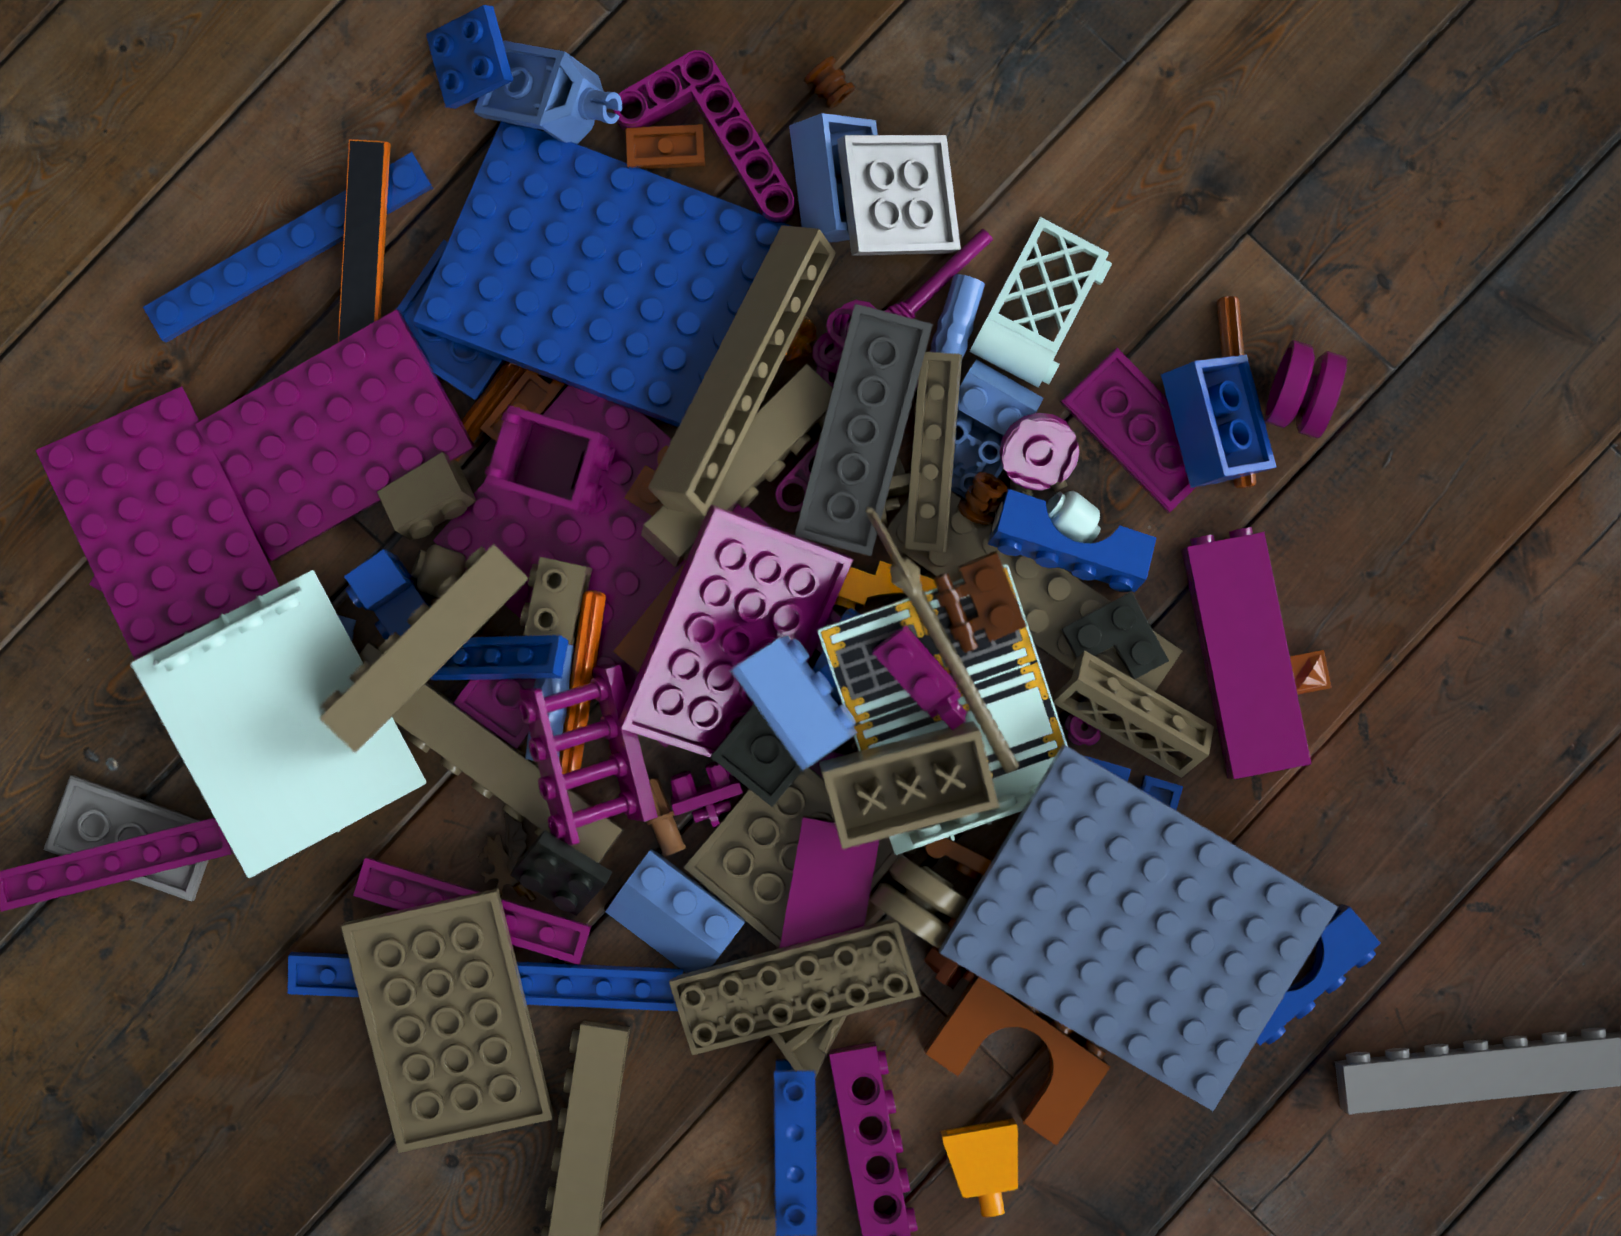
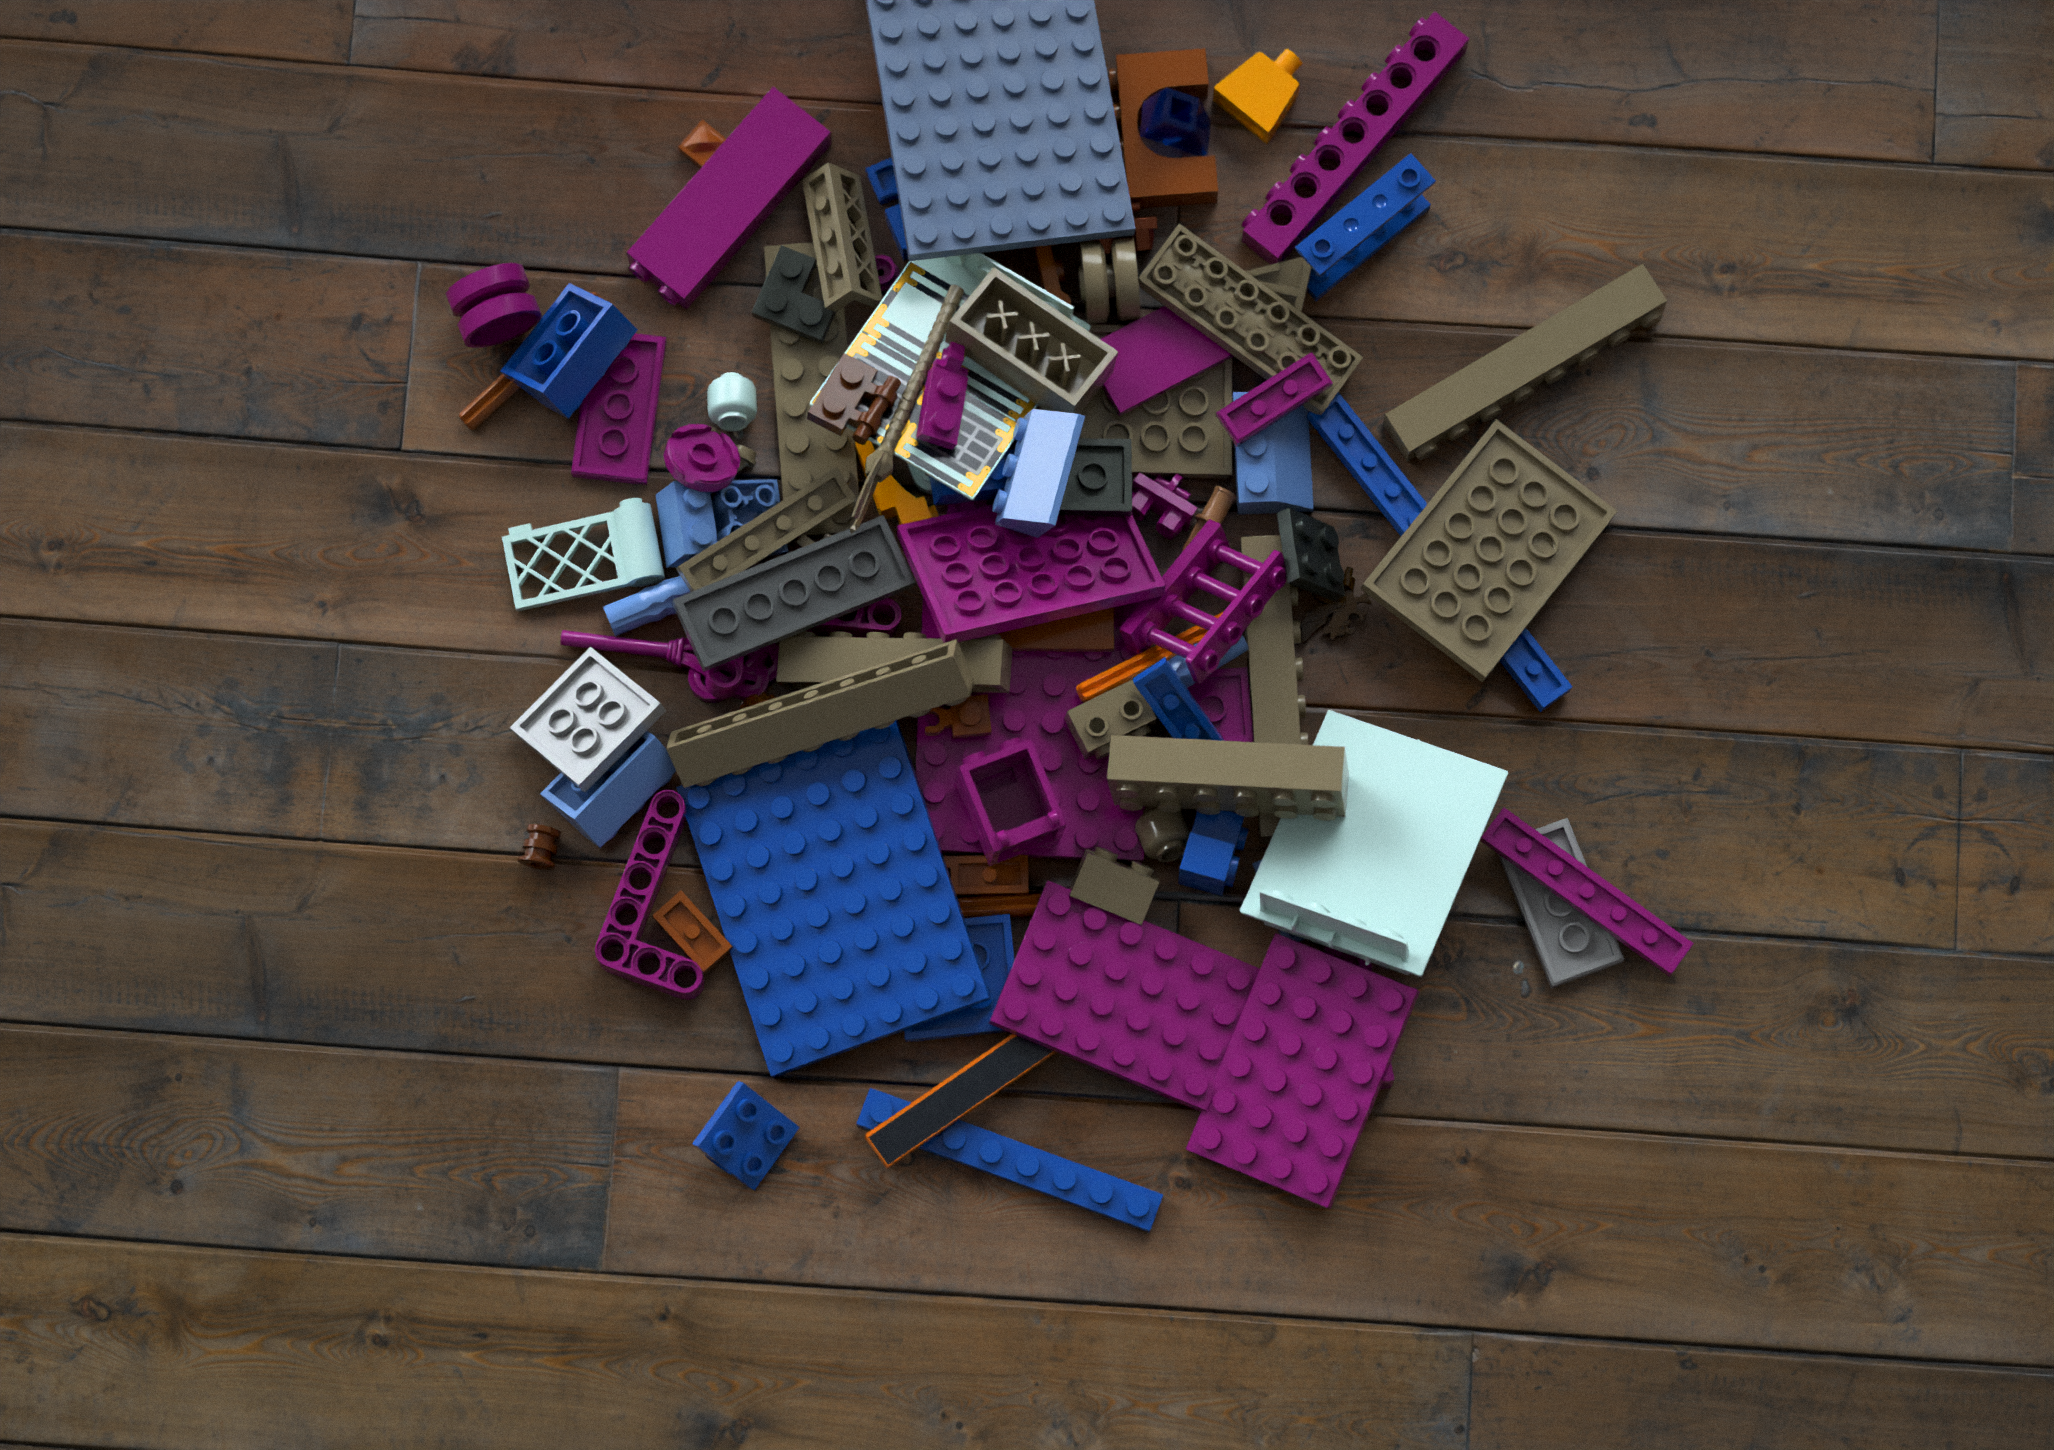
camera: 130 degrees left, 10 degrees down
(527, 926) = (1416, 655): magenta plate -> none
(549, 94) = (725, 1047): medium blue plate -> none
(707, 949) = (1274, 399): none -> magenta tile
(982, 498) = (771, 474): reddish brown bush -> none
(1012, 1068) = (1176, 121): none -> clear blue slope
(1026, 530) = (767, 425): blue arch -> none

